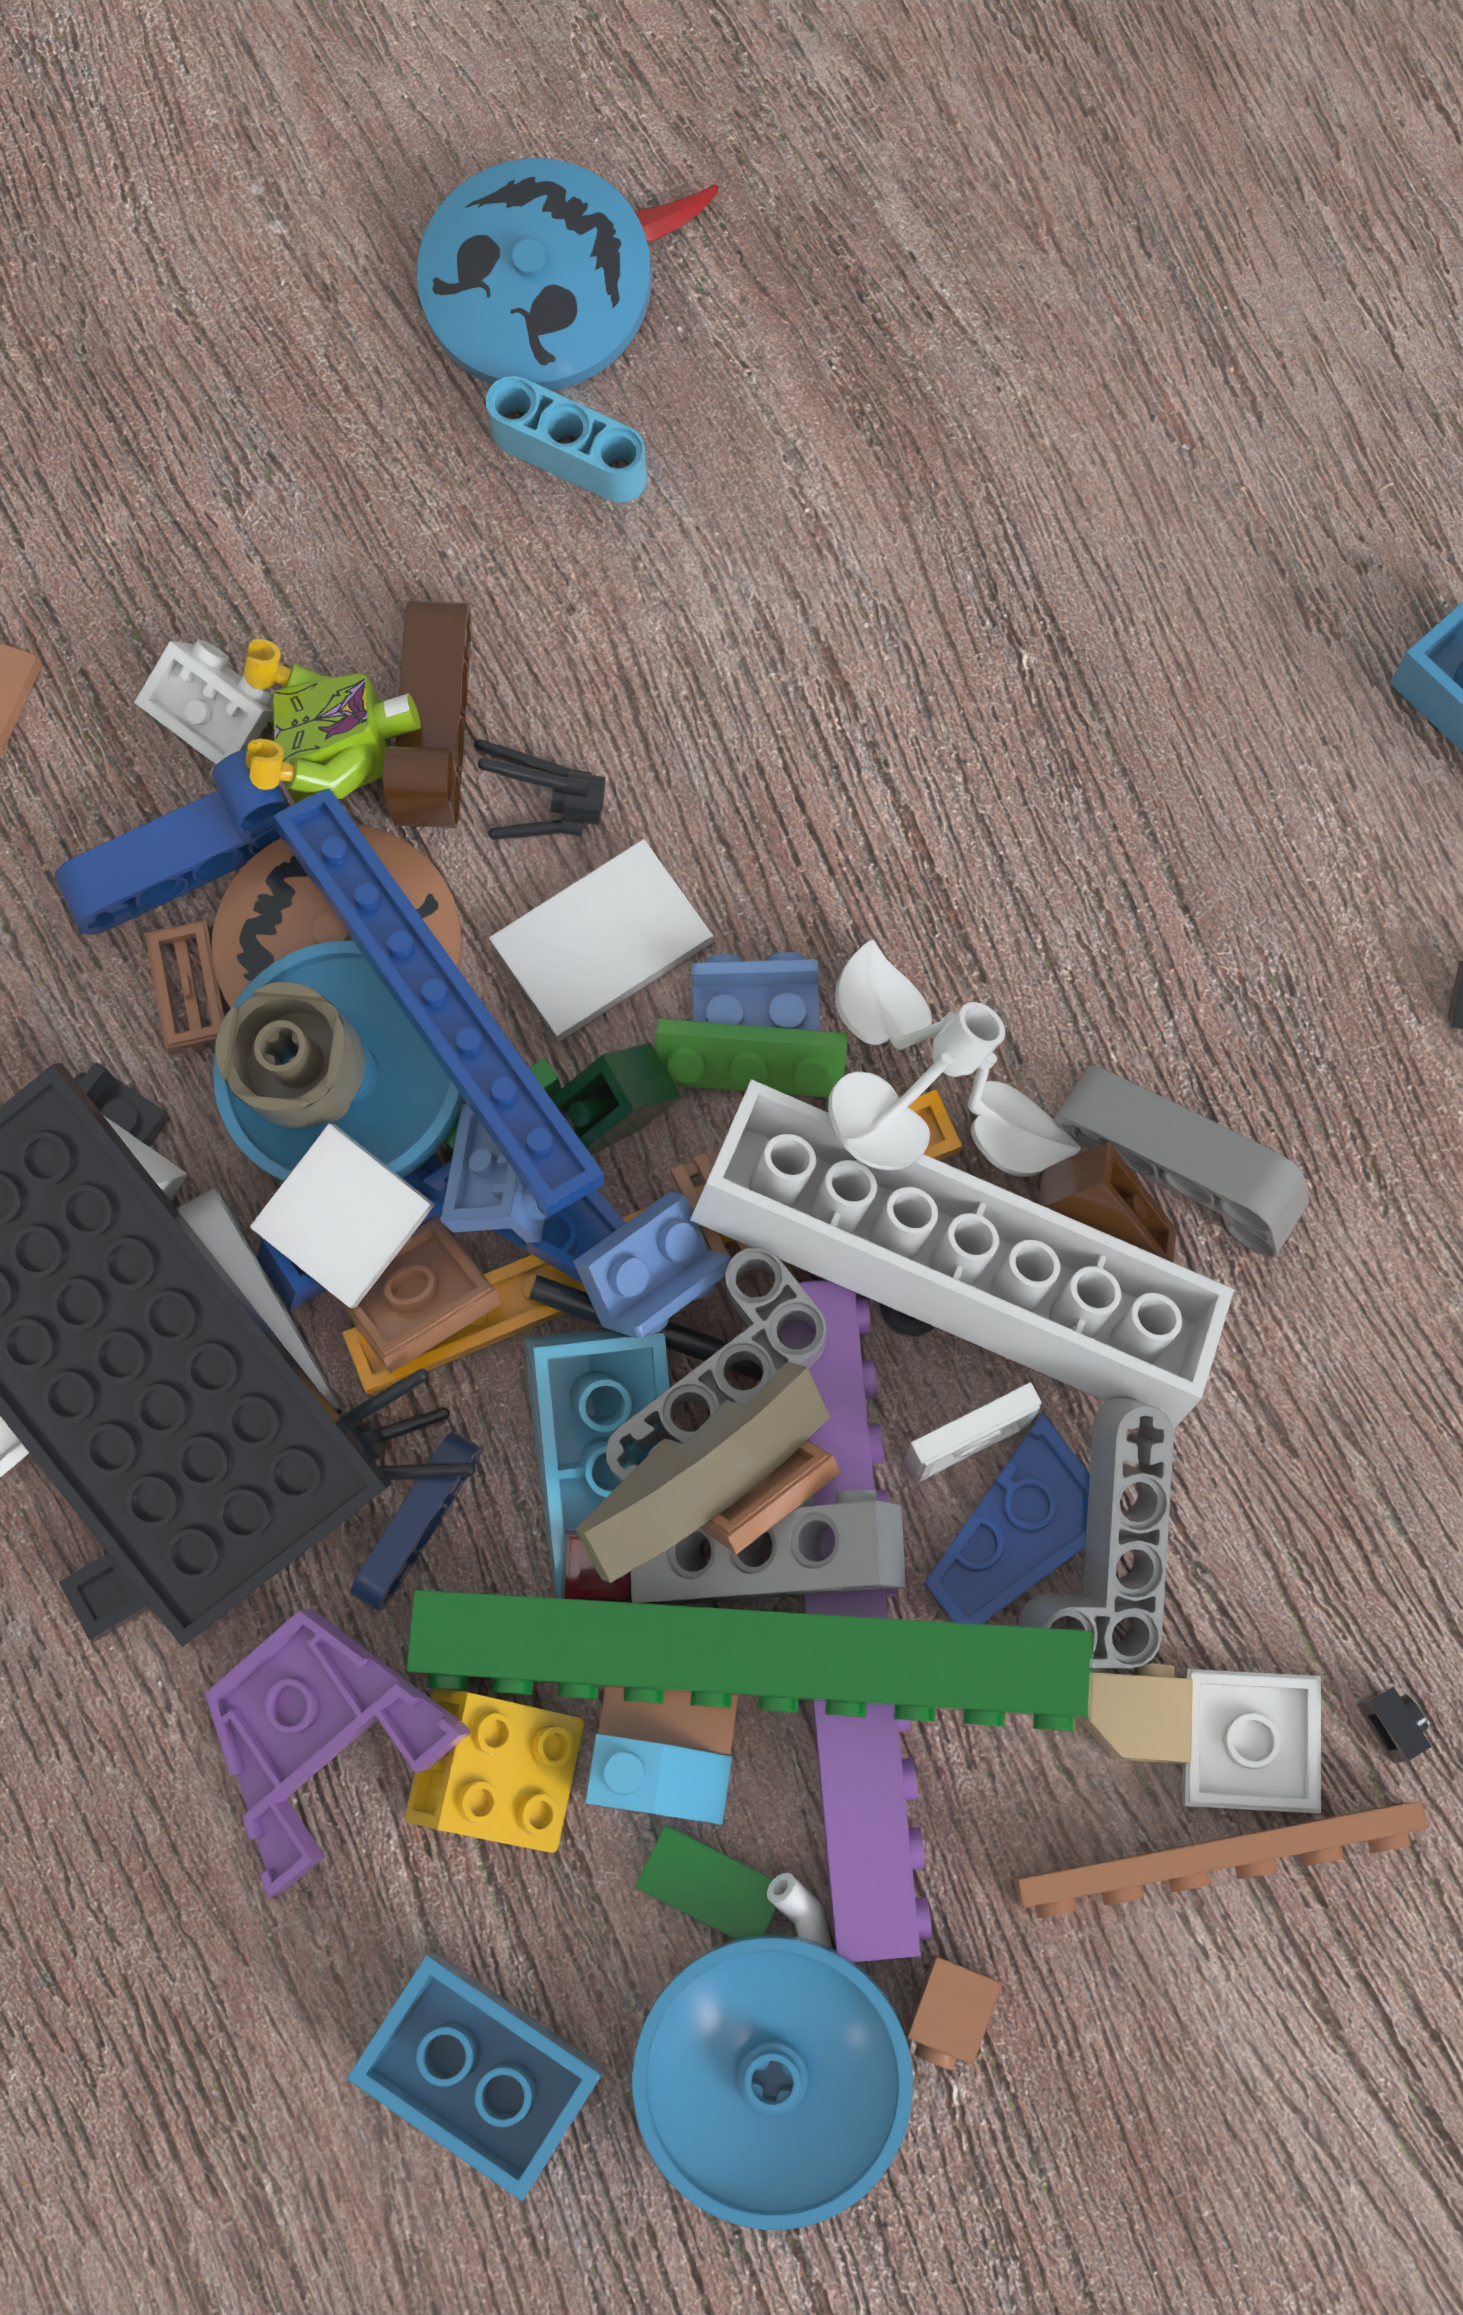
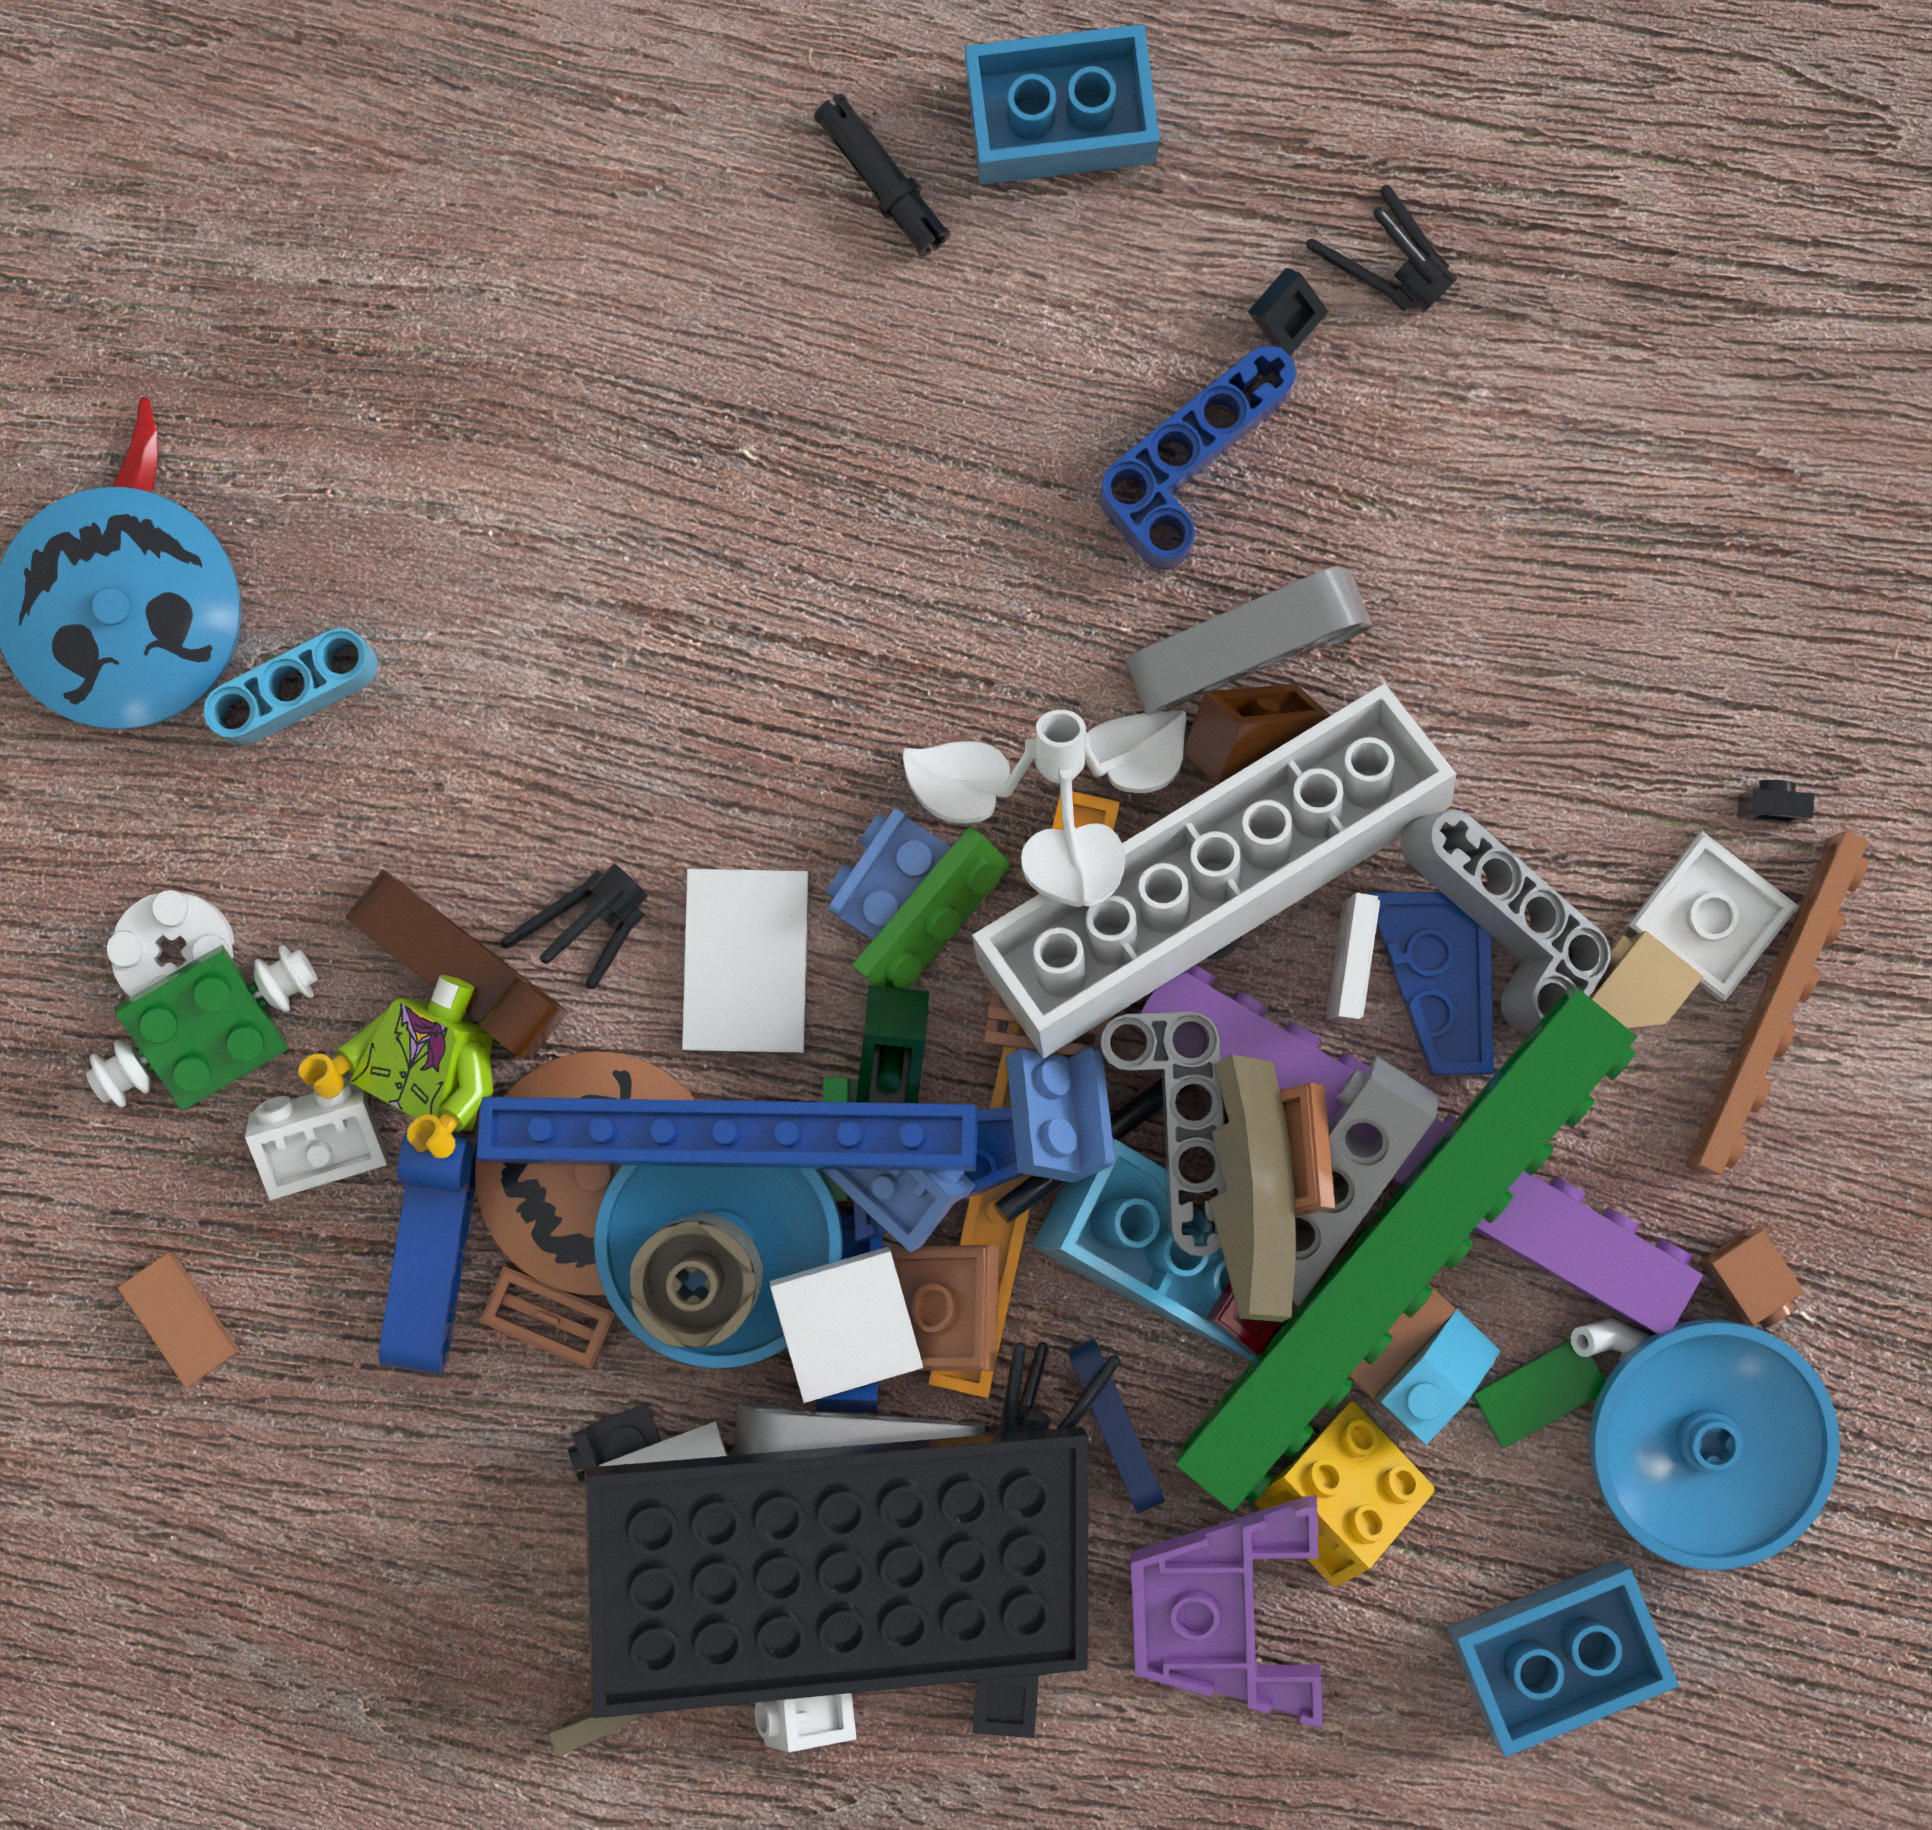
camera: 55 degrees left, 10 degrees up
(240, 556) = (201, 1027): none -> green plate
(280, 468) = (151, 920): none -> white plate
(1318, 1010) = (1204, 445): none -> blue beam
(1329, 621) = (896, 193): none -> black pin

